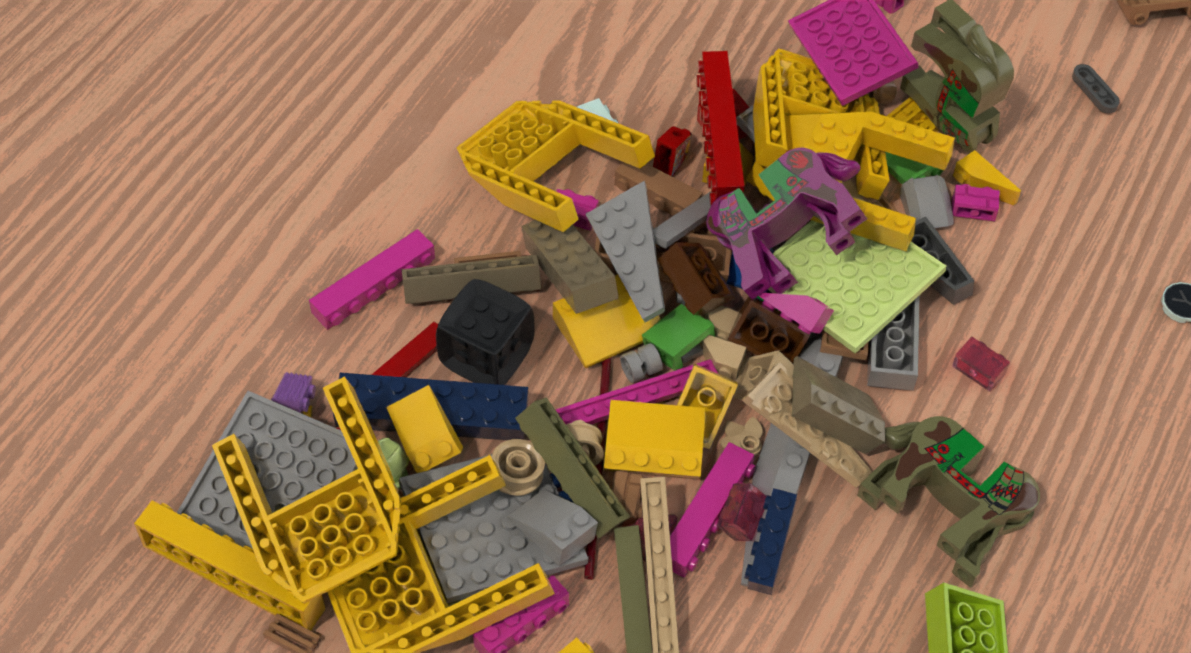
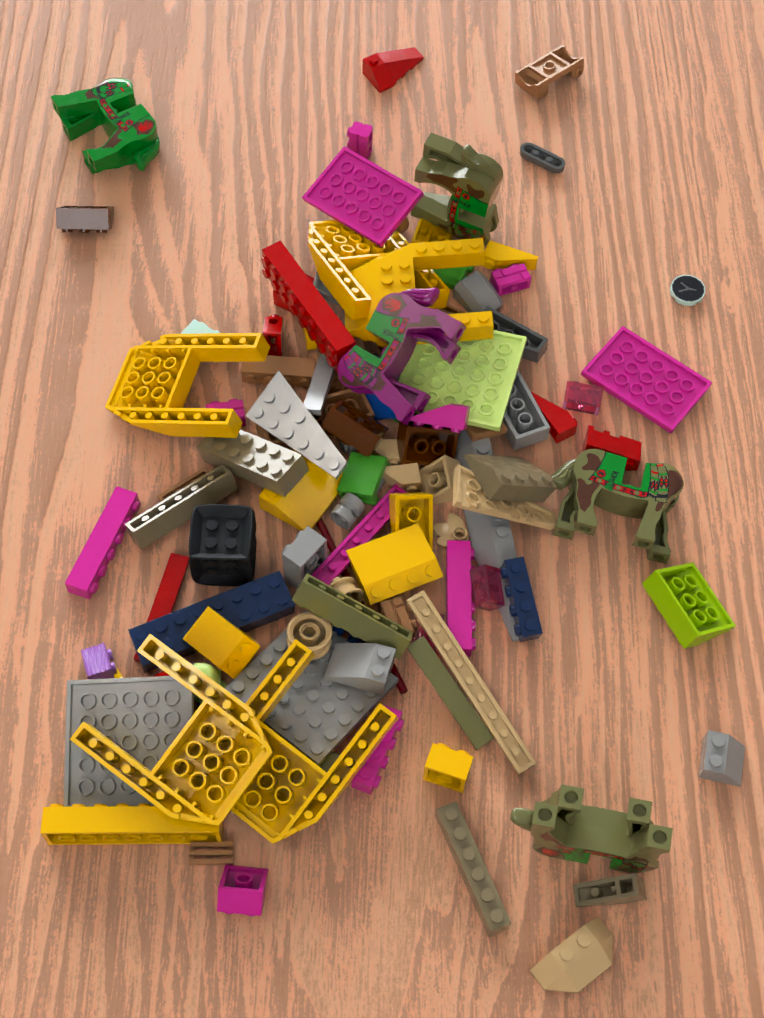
camera: 30 degrees left, 5 degrees up
(561, 380) = (303, 556): none -> light grey brick
(934, 372) = (560, 421): none -> red slope
(997, 440) = (620, 446): none -> red wedge
(1071, 378) = (646, 379): none -> dark pink plate

